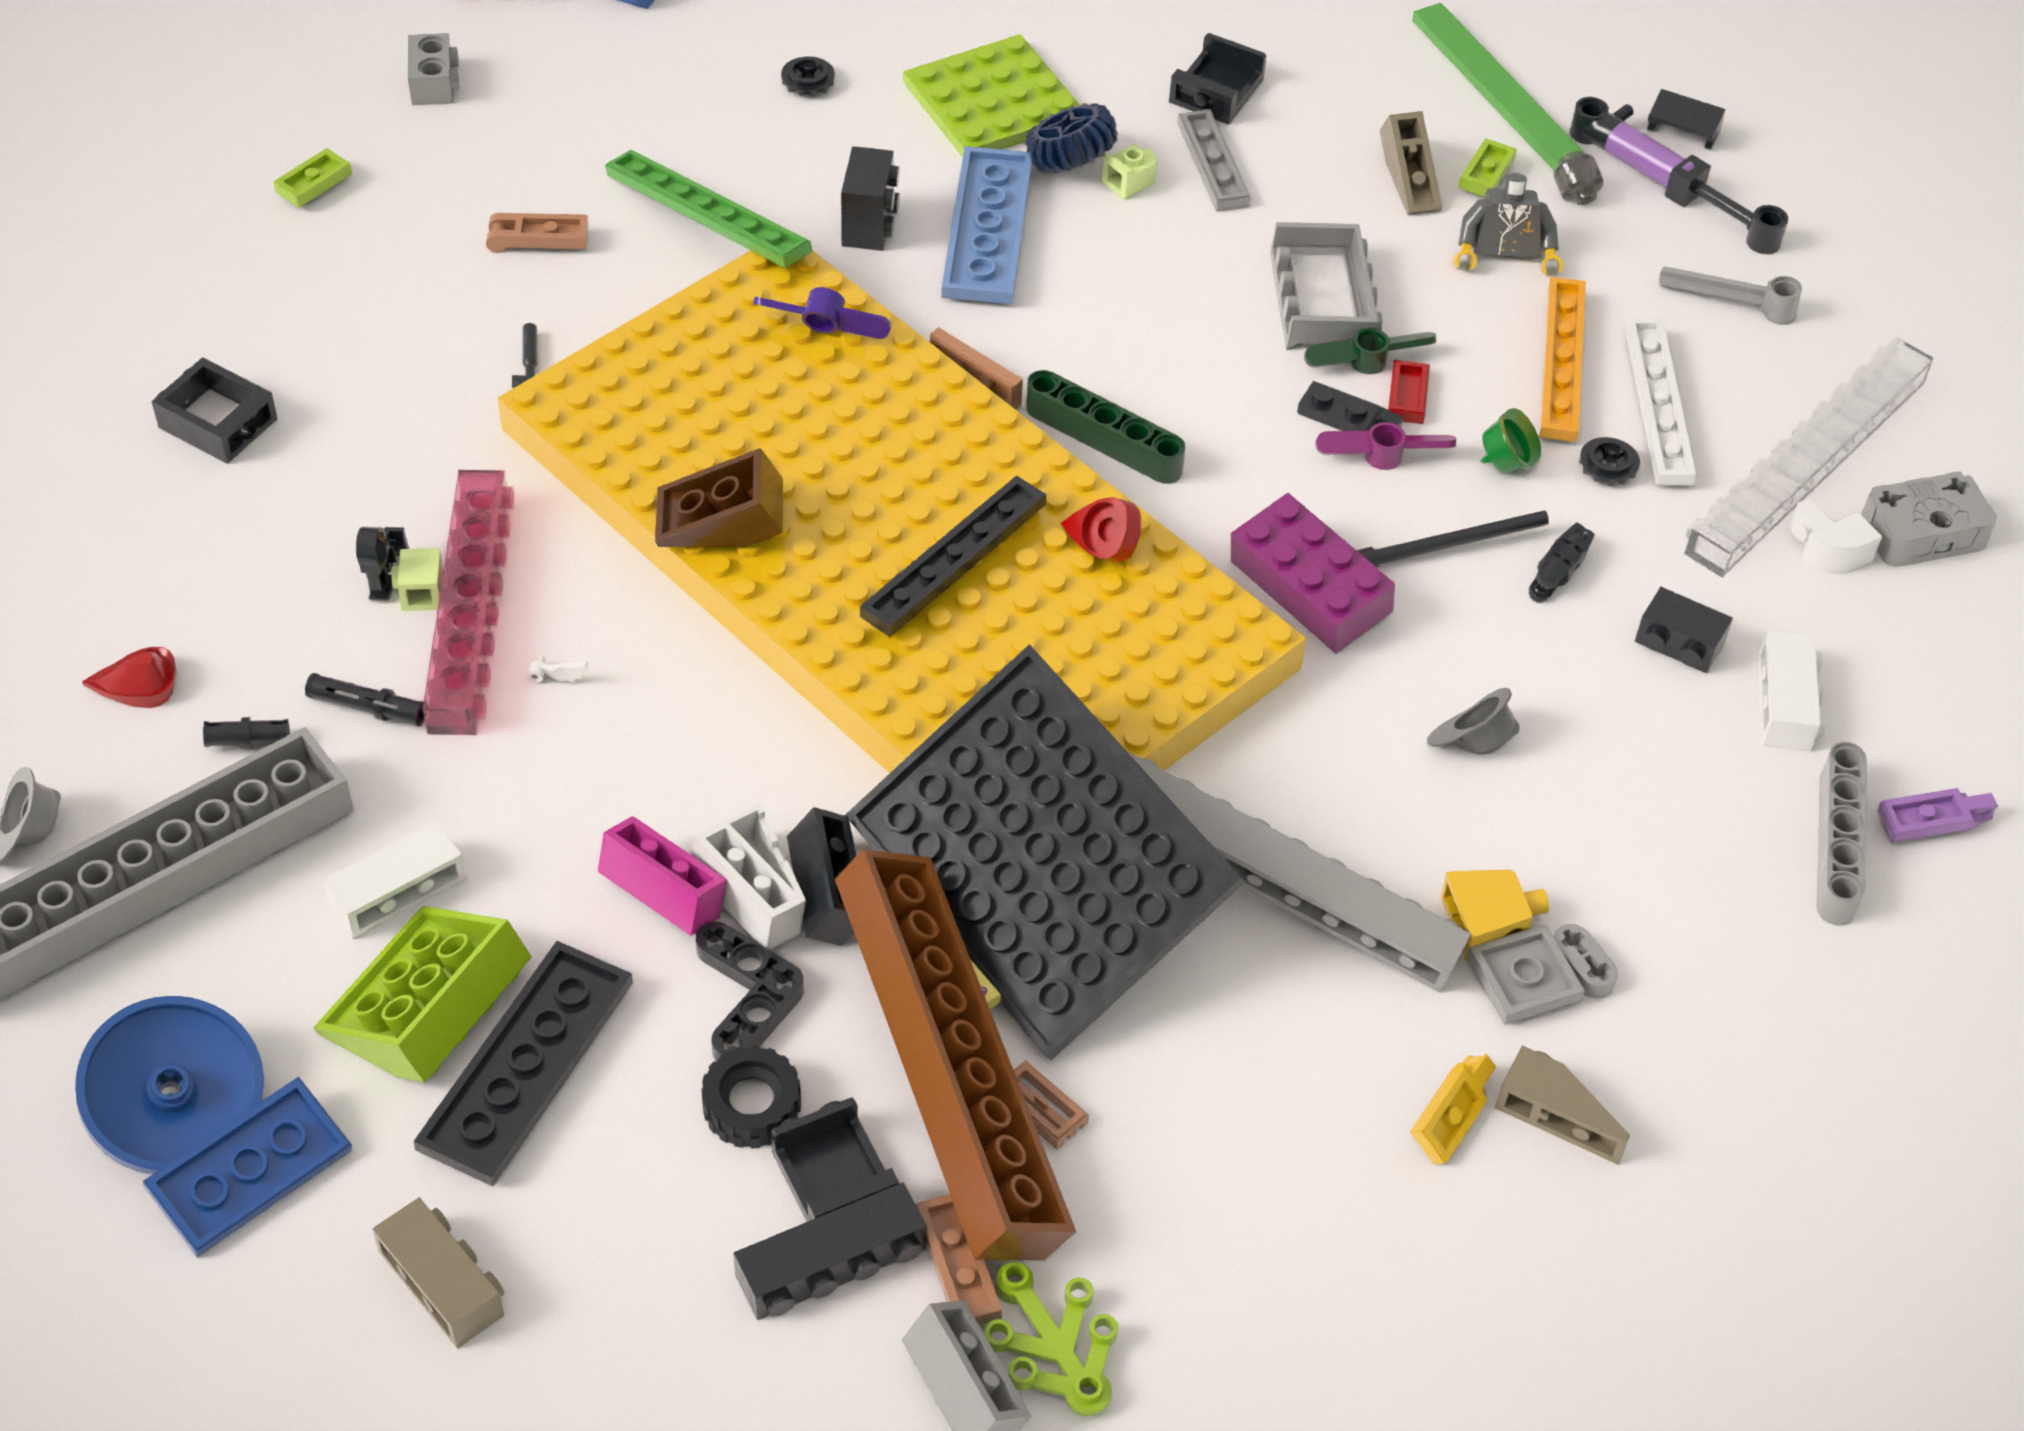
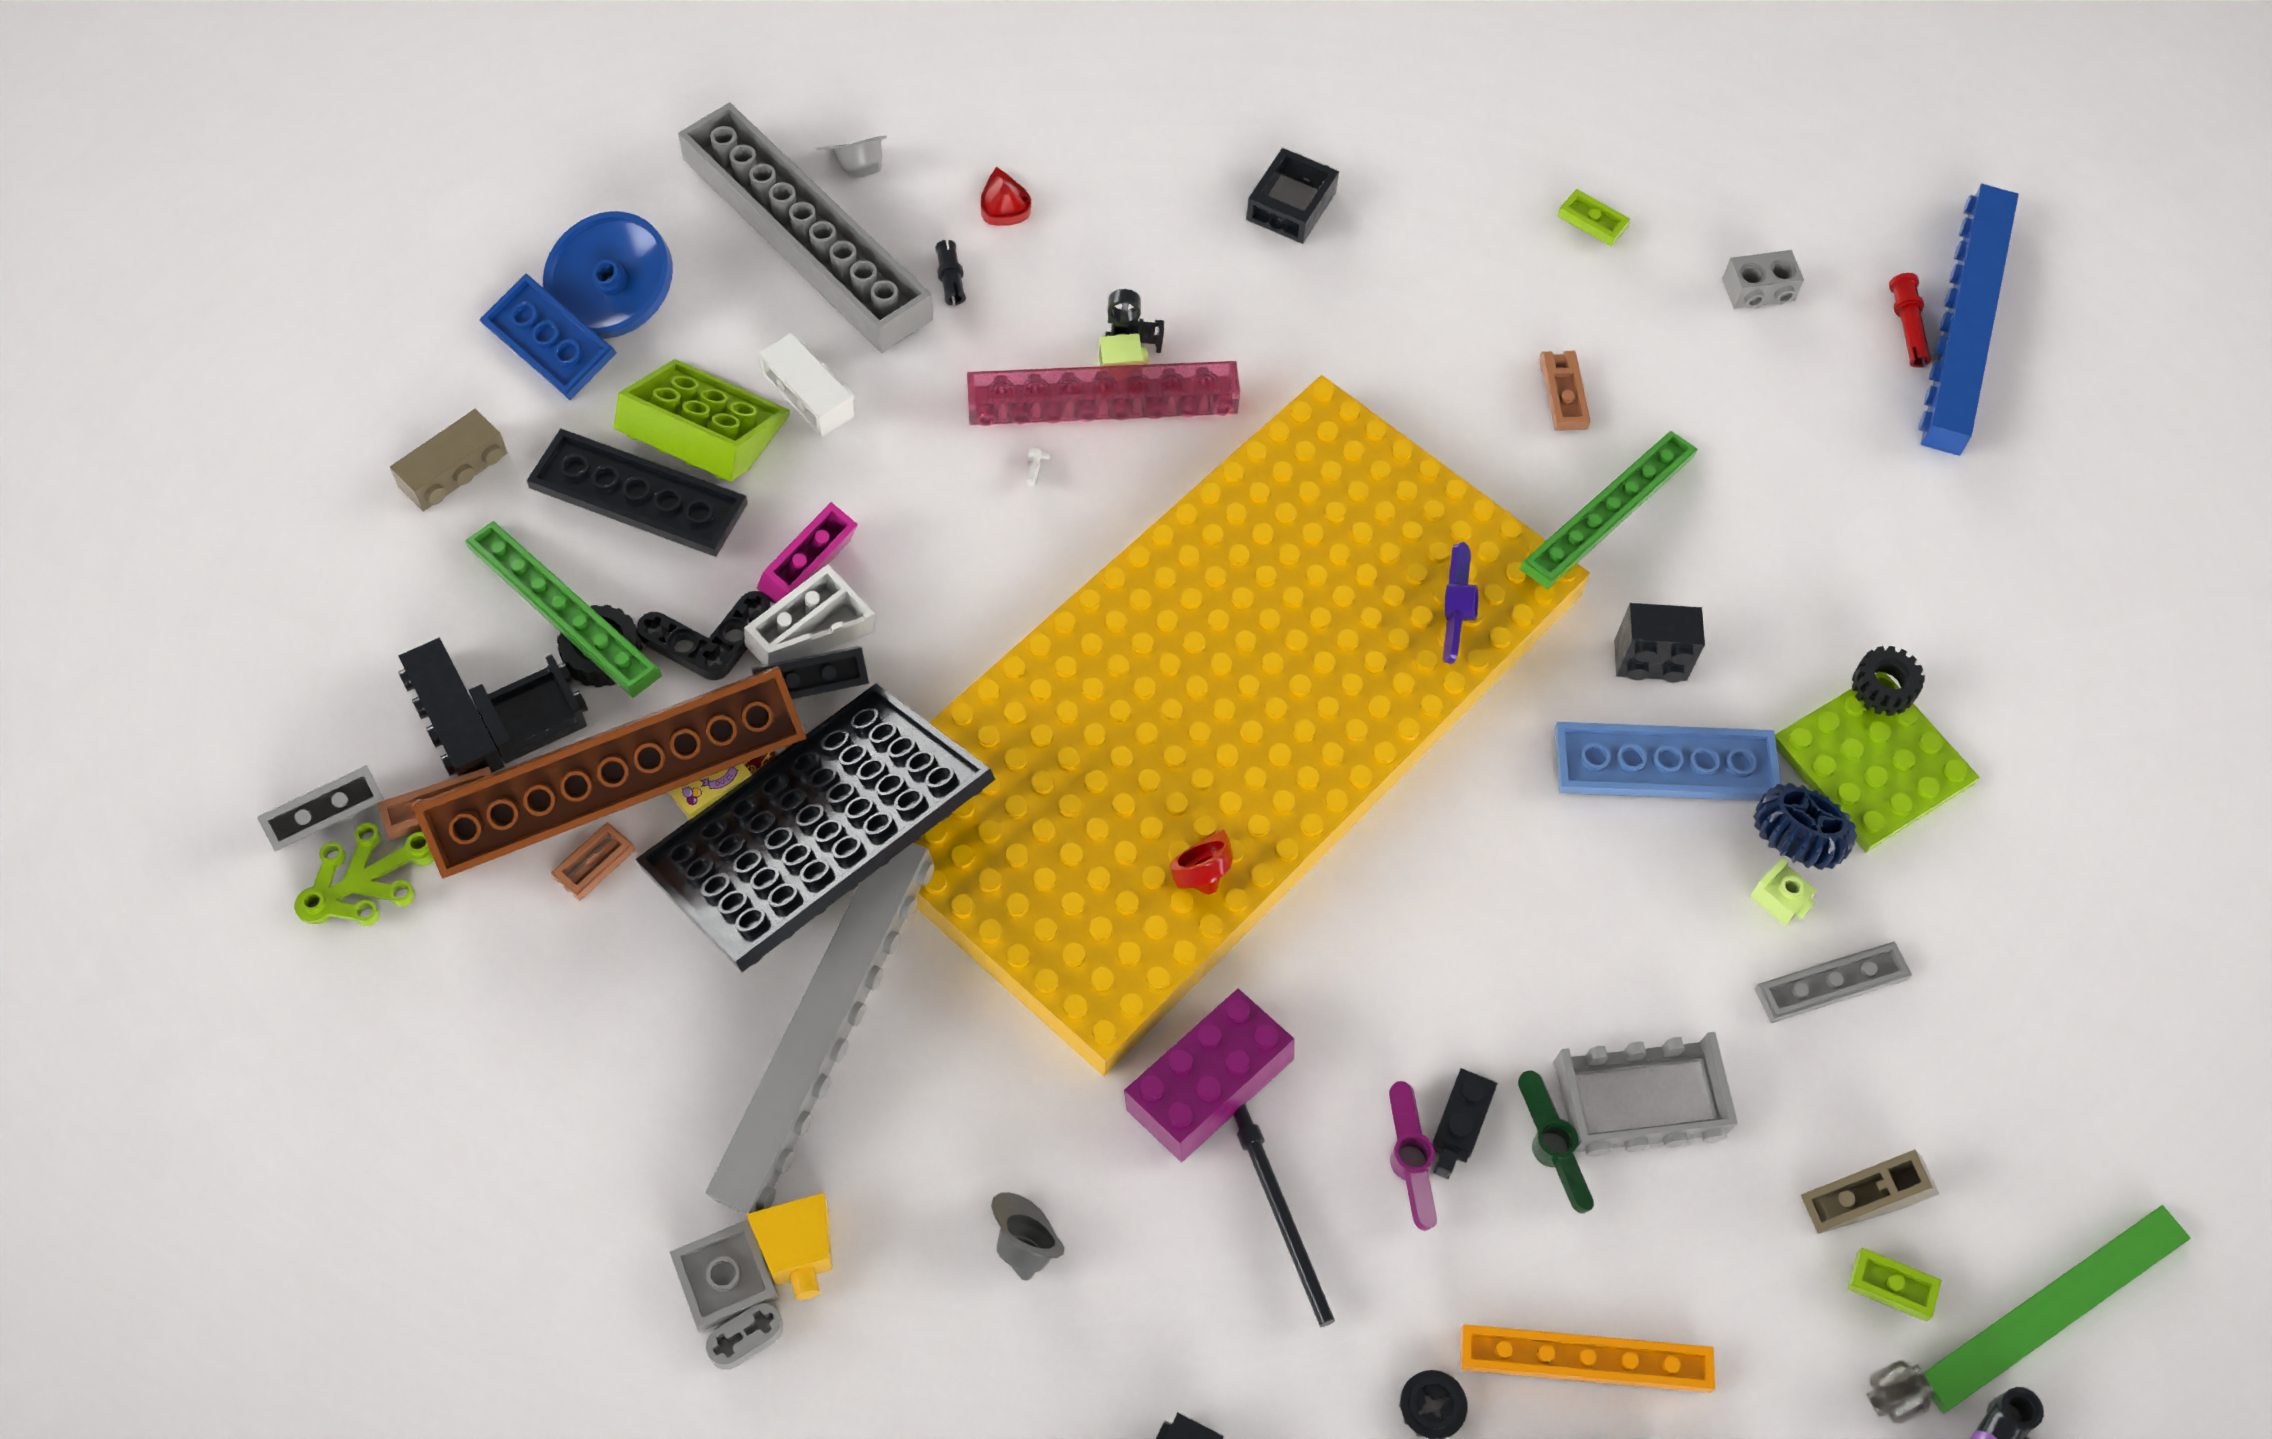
camera: 85 degrees right, 10 degrees up
(325, 687) = (987, 353): black pin -> none
(529, 354) = (1405, 405): black piece -> none
(699, 1125) = (564, 609): none -> bright green tile
(722, 505) = (1193, 545): reddish brown slope -> none
(808, 67) = (1848, 573): black gear -> none
(926, 60) = (1896, 665): none -> black tyre
(952, 556) = (1160, 734): black plate -> none
(989, 373) = (1448, 759): nougat tile -> none
(1105, 426) = (1386, 894): dark green beam -> none
(1219, 78) = (1964, 983): black panel -> none
(1409, 390) = (1506, 1187): red tile -> none
(1453, 1108) = (572, 1201): yellow hinge -> none
(1509, 225) = (1783, 1299): dark grey torso -> none
(1511, 442) = (1434, 1293): green piece -> none
(1558, 1103) = (575, 1294): dark tan slope -> none
(1560, 562) = (1269, 1340): black hinge -> none

